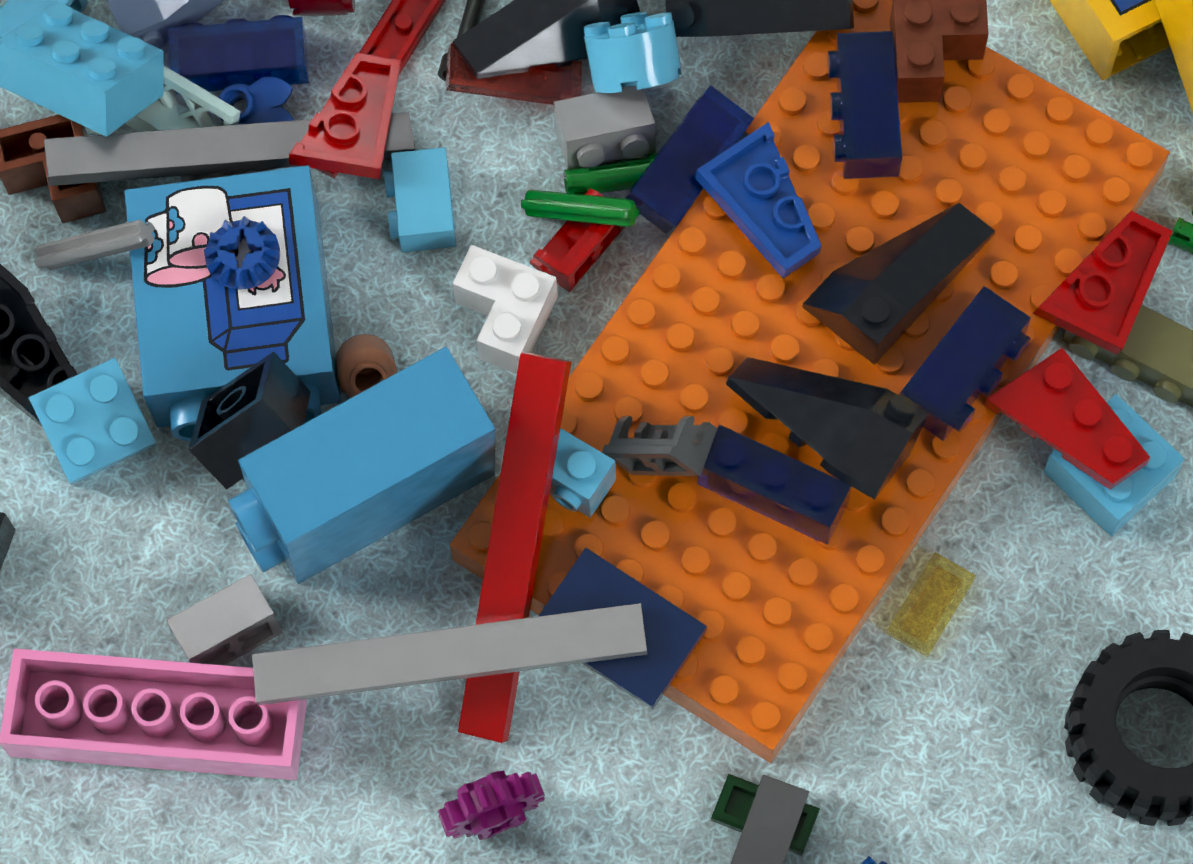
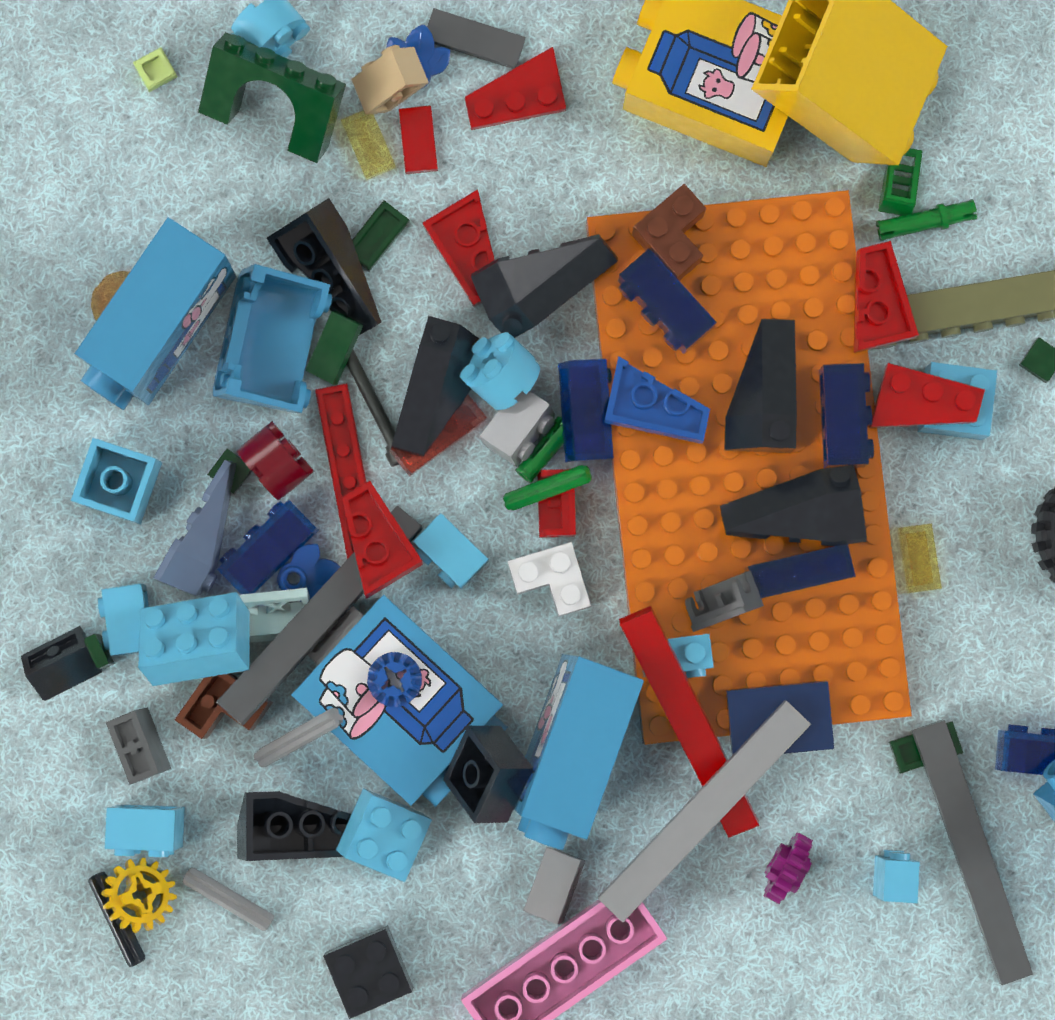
camera: 45 degrees left, 15 degrees up
(363, 363) = (506, 678): nougat head -> none

